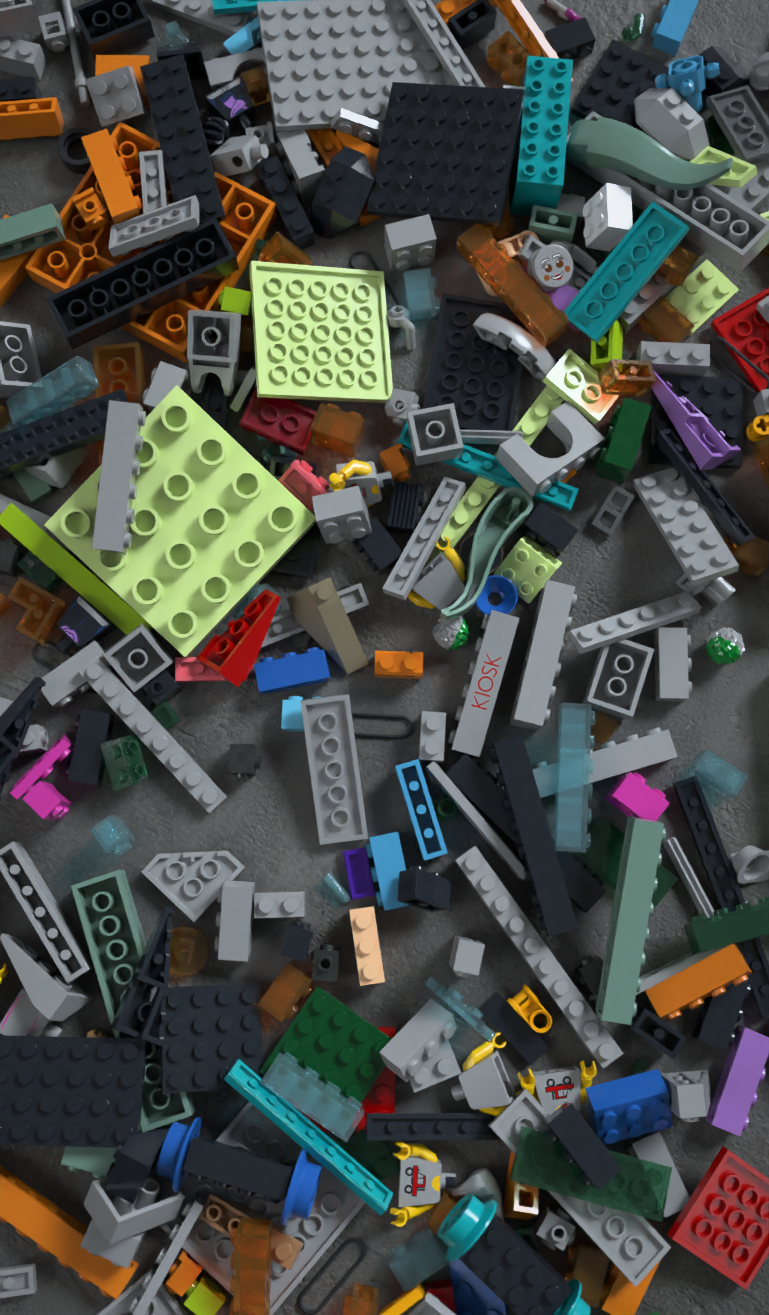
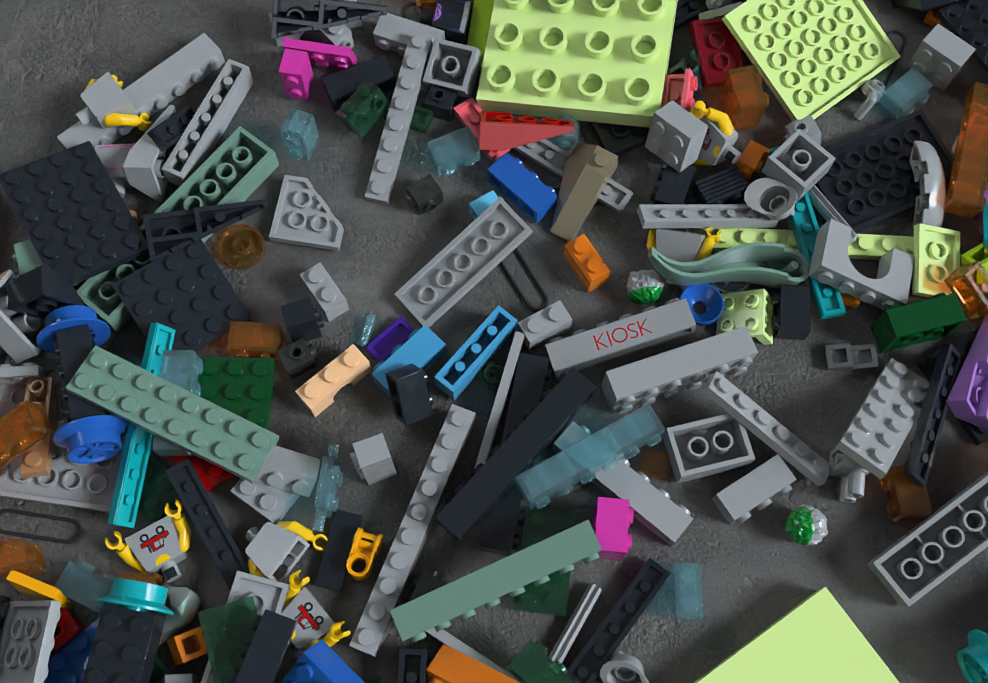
camera: 60 degrees right, 10 degrees down
(30, 947) = (171, 129): none -> black tile
(218, 707) = (453, 151): none -> clear light blue brick
(235, 920) = (286, 265): light grey brick -> none
(326, 1108) = (173, 414): none -> sand green piece
(445, 476) = (771, 198): none -> light grey piece

